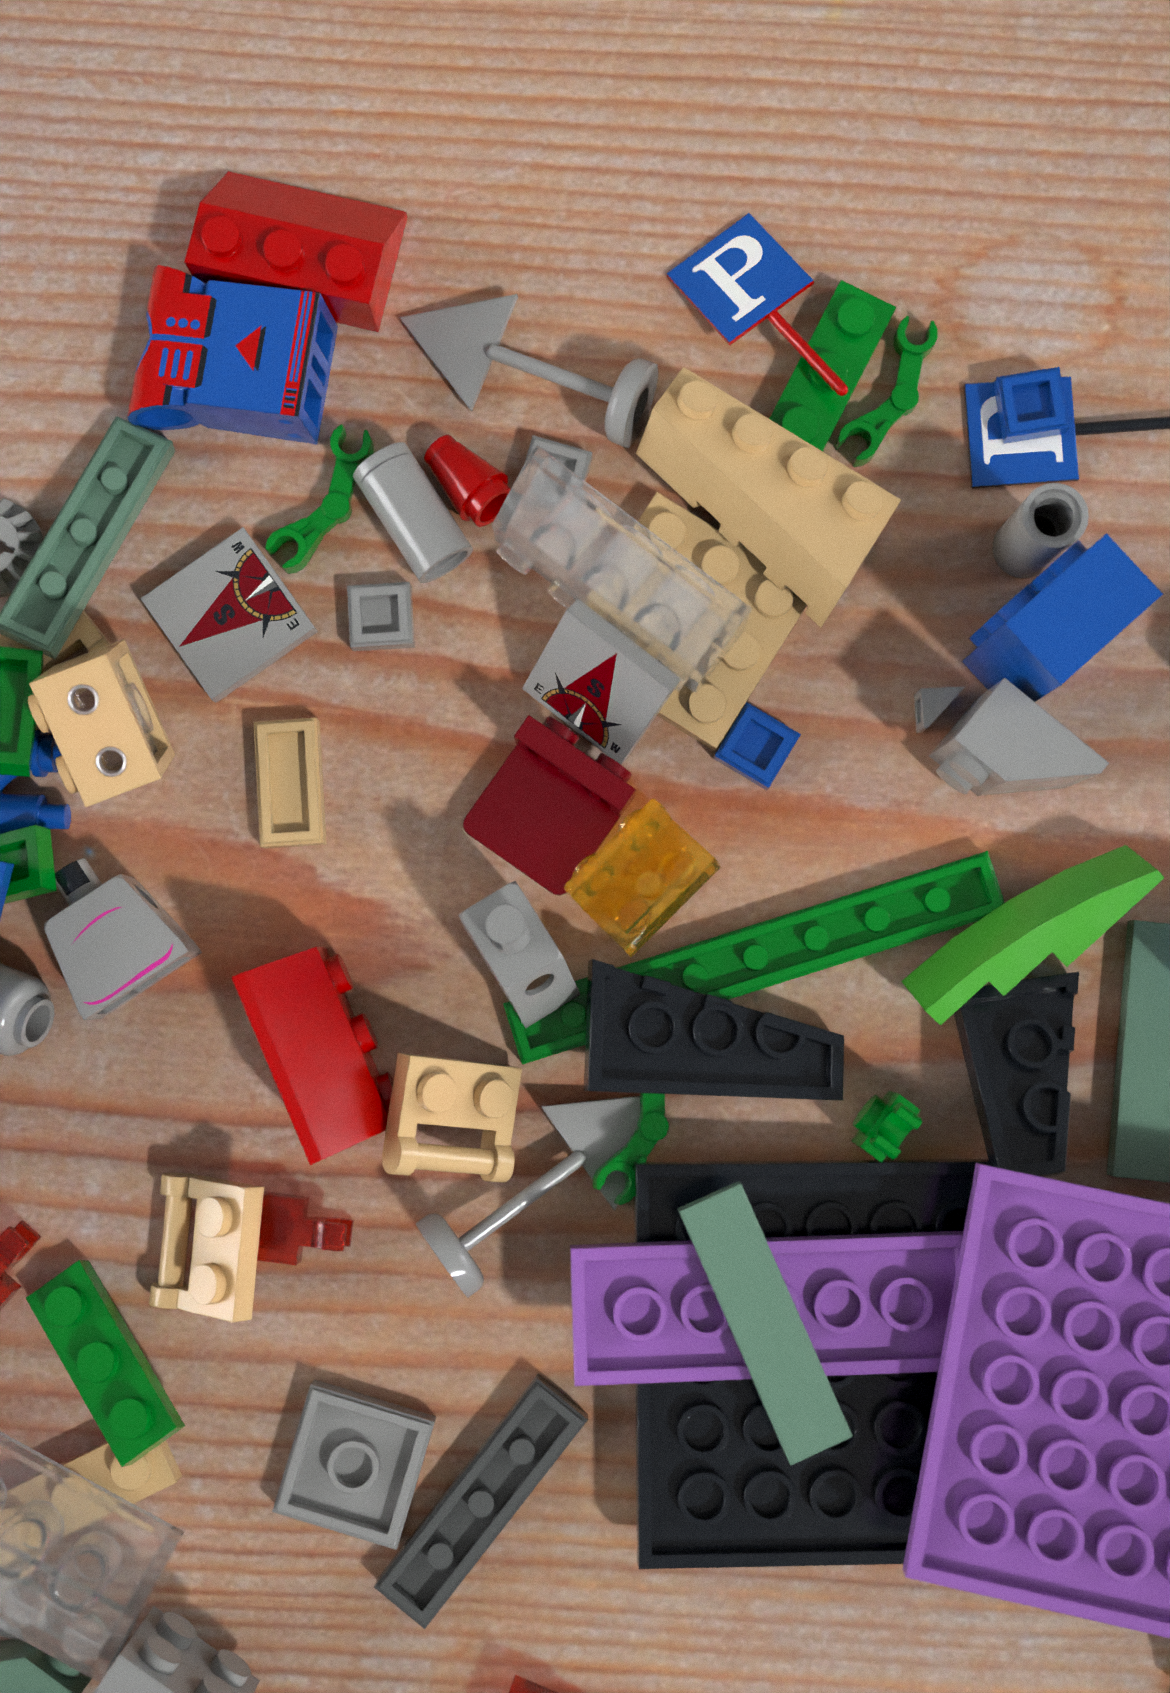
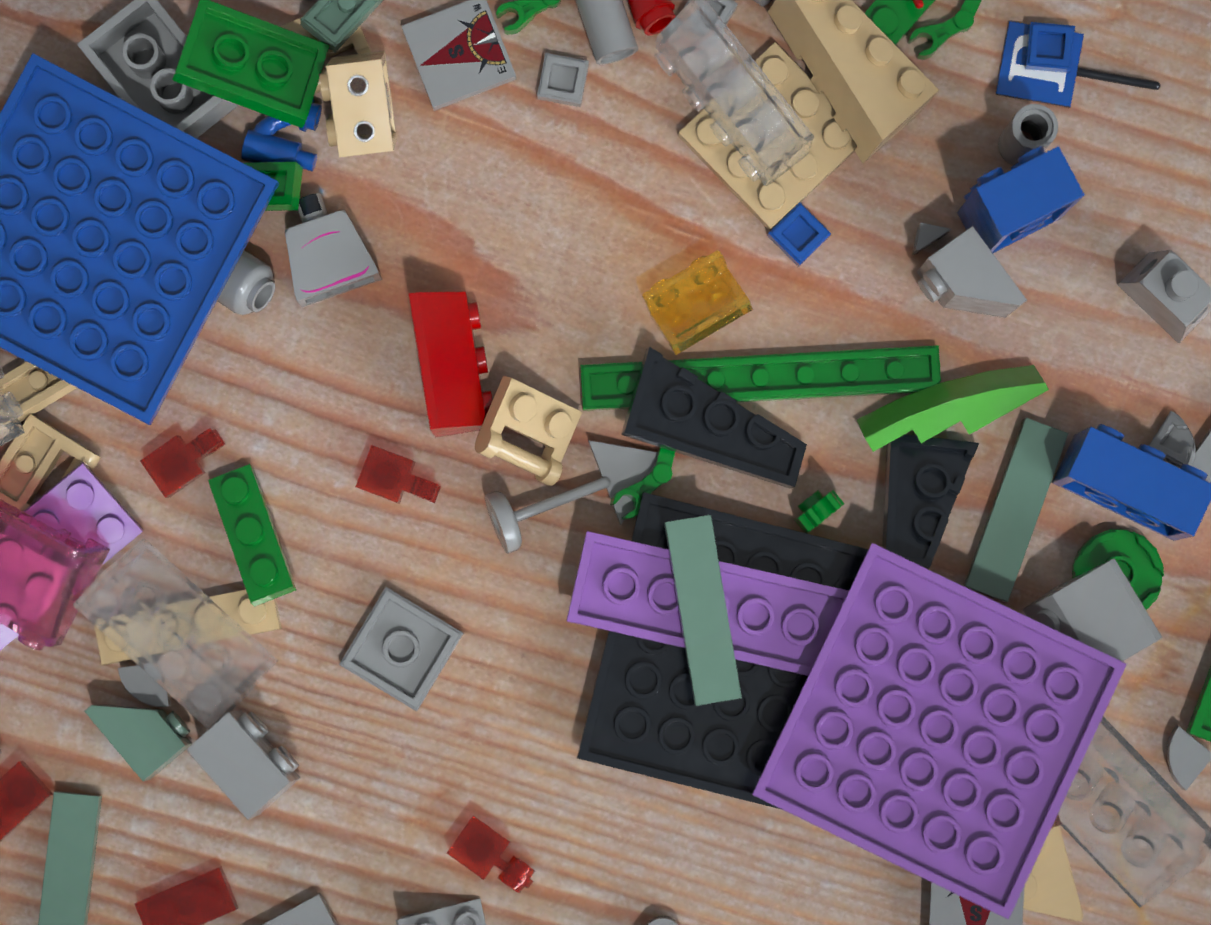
camera: 10 degrees right, 0 degrees up
(222, 1246) = (350, 479): tan plate -> none
(289, 783) = (471, 178): tan tile -> none
(481, 1501) = (481, 695): dark grey tile -> none
(519, 952) = (598, 325): light grey torso -> none
(549, 804) = (646, 237): dark red bracket -> none
(600, 682) = (702, 162): light grey tile -> none

